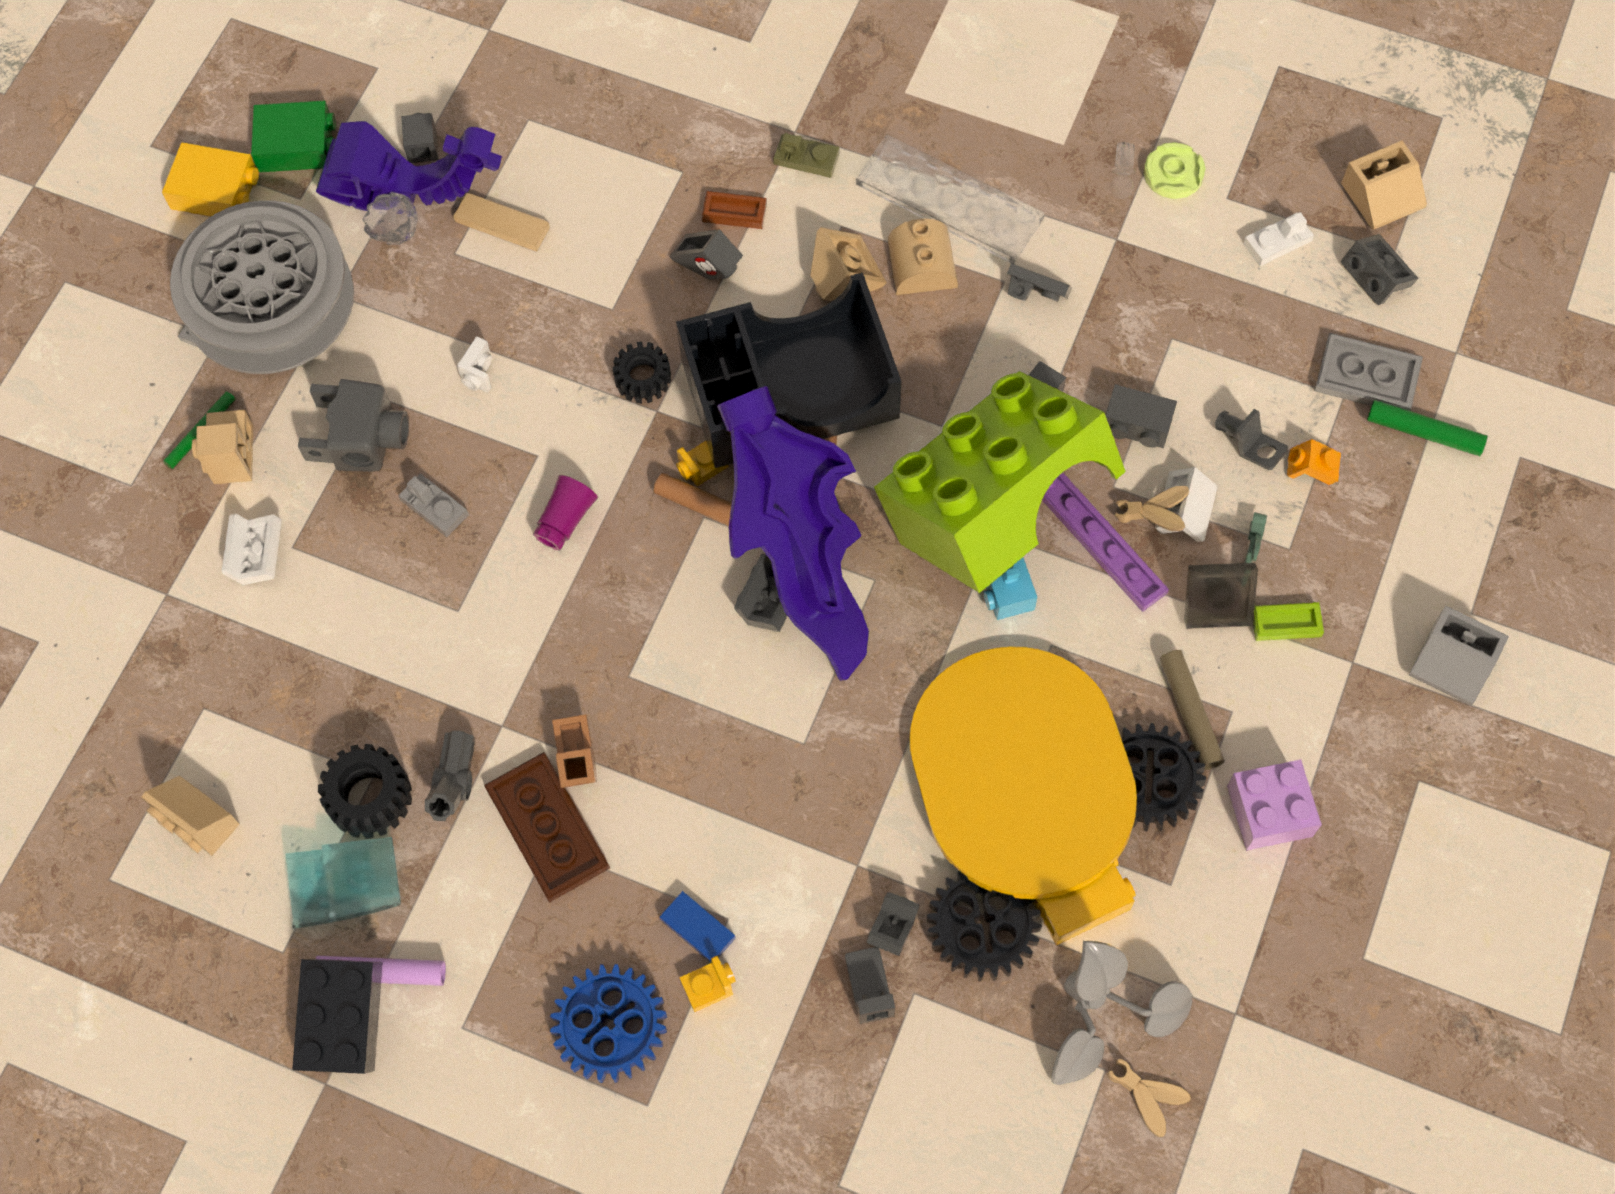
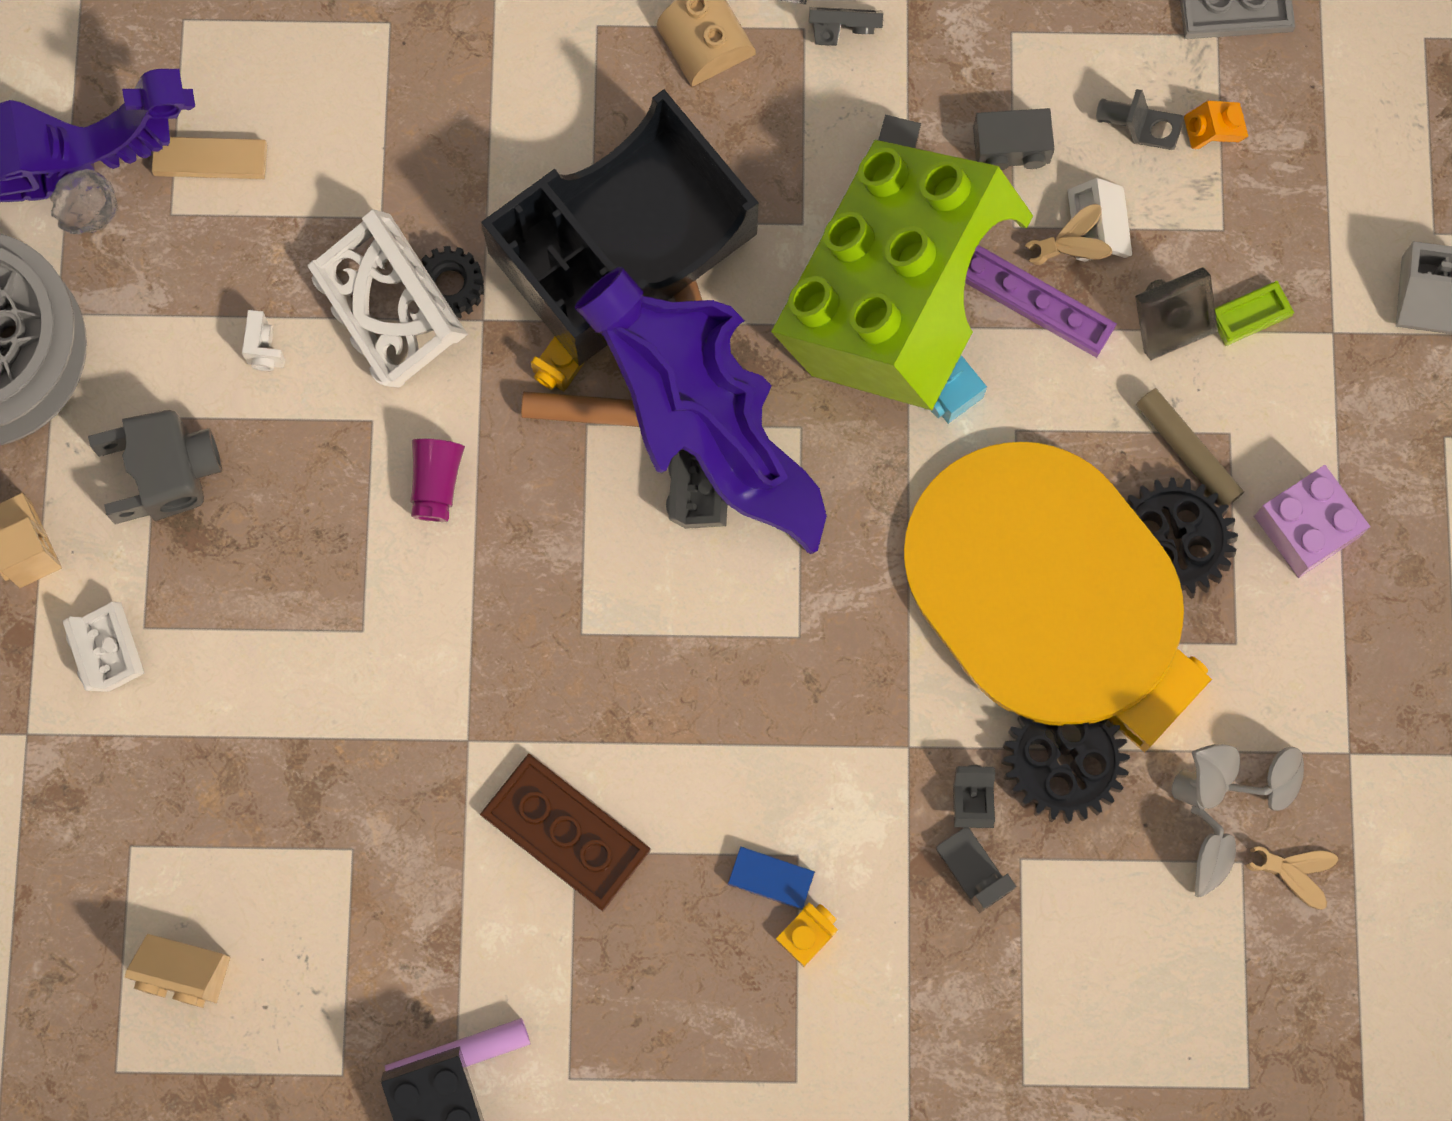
camera: 25 degrees left, 10 degrees up
(341, 881) = (374, 977): clear light blue slope -> none
(351, 769) = (333, 847): black tyre -> none
(419, 137) = (69, 88): dark grey brick -> none
(433, 505) = (282, 521): light grey hinge -> none
(453, 777) = (443, 820): dark grey piece -> none
(560, 357) = (433, 311): none -> white fence
(574, 751) = (565, 743): medium nougat brick -> none
(589, 998) = (755, 1033): blue gear -> none
(707, 254) = (463, 116): dark grey slope -> none
(734, 209) = (469, 49): dark orange tile -> none
(837, 258) = (623, 76): tan slope -> none
(1255, 536) = (1189, 242): sand green piece -> none
(1427, 428) = (1319, 41): green piece -> none

